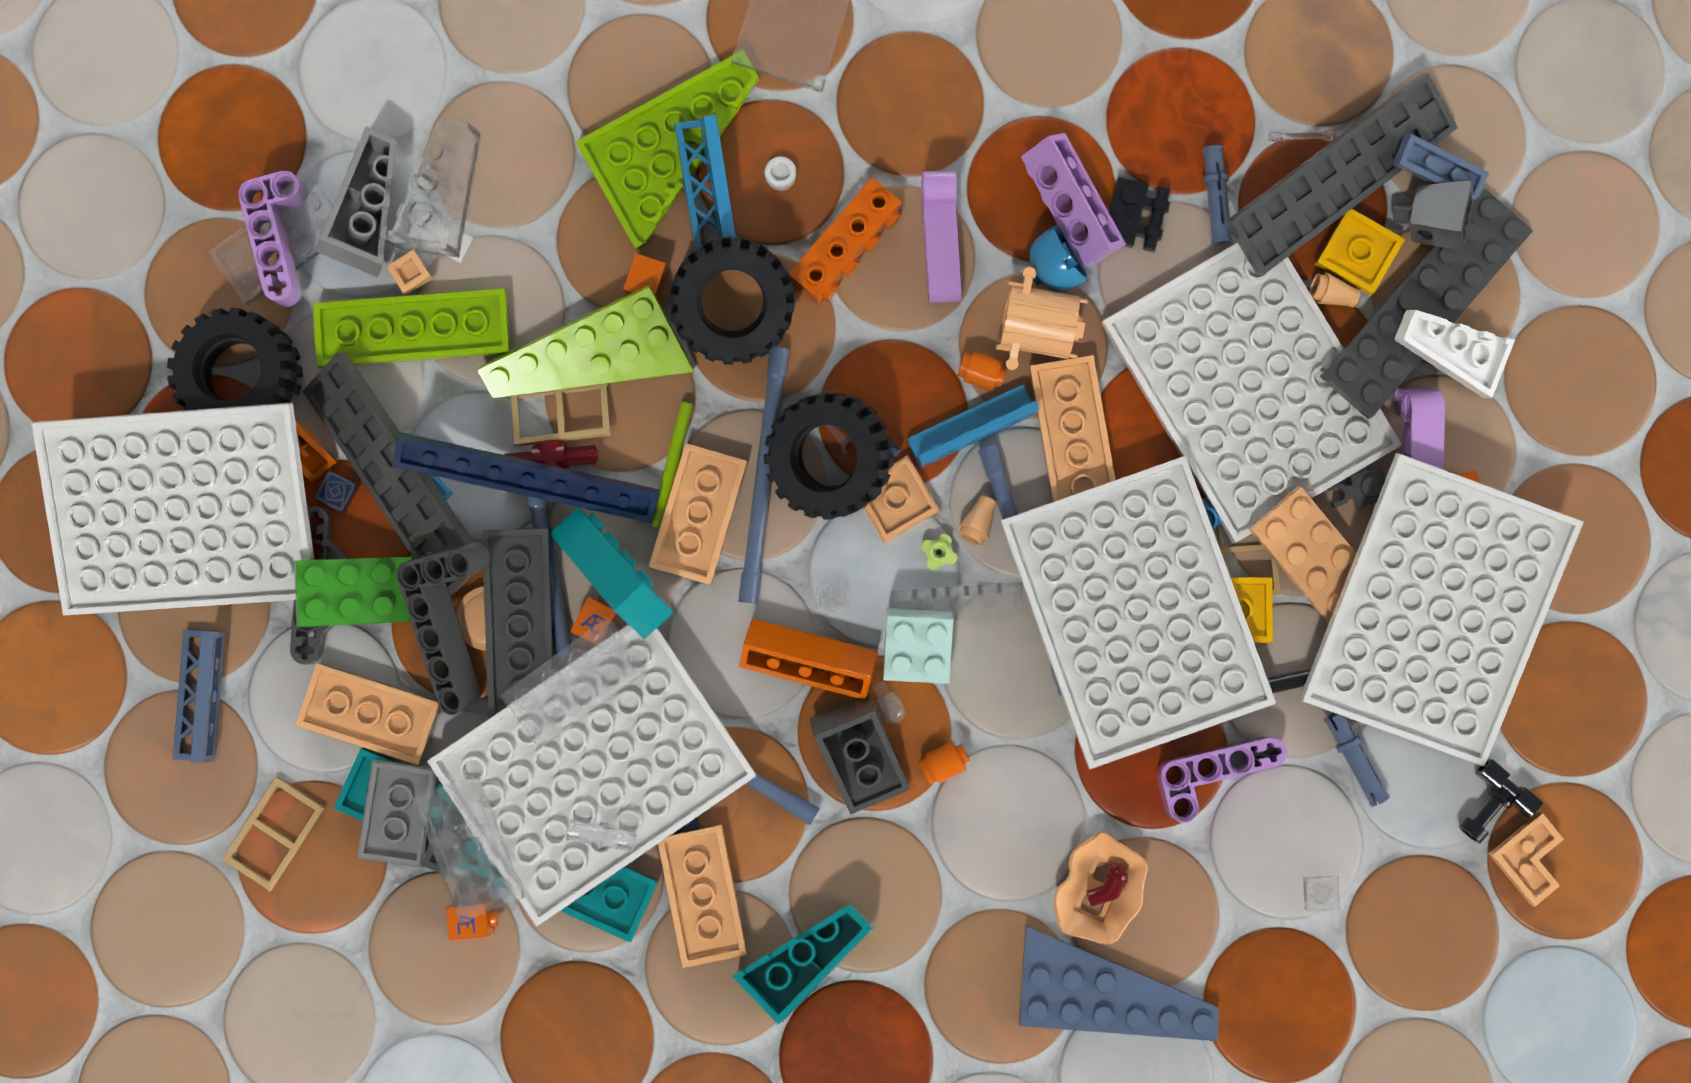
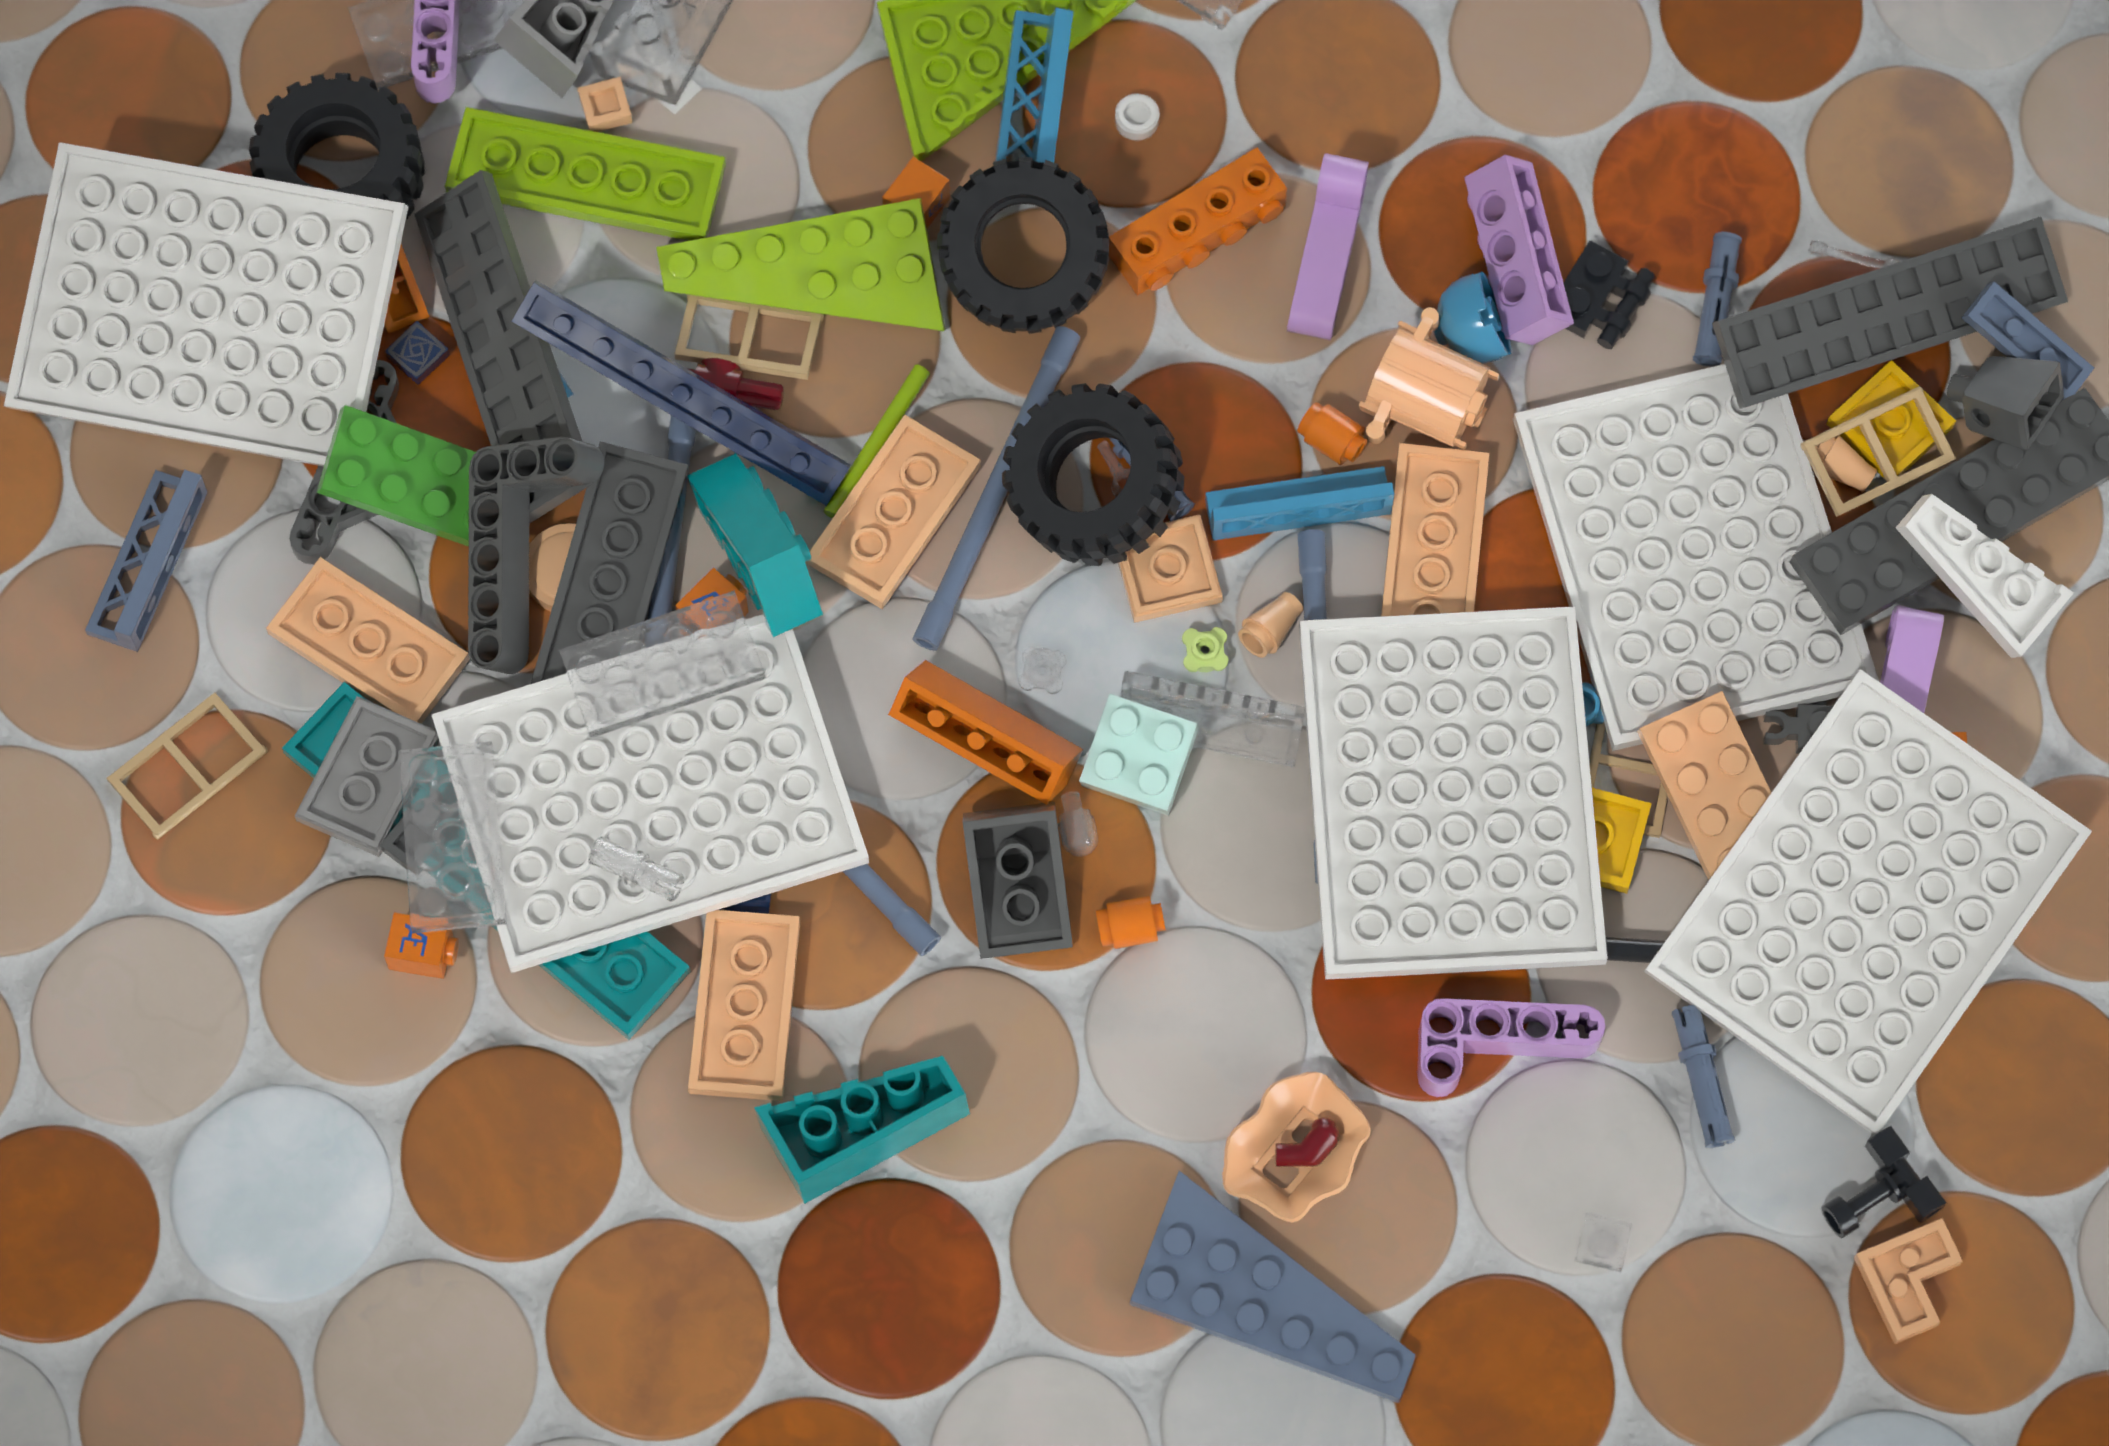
camera: 10 degrees right, 15 degrees down
(1363, 283) = (1863, 422): none -> tan window

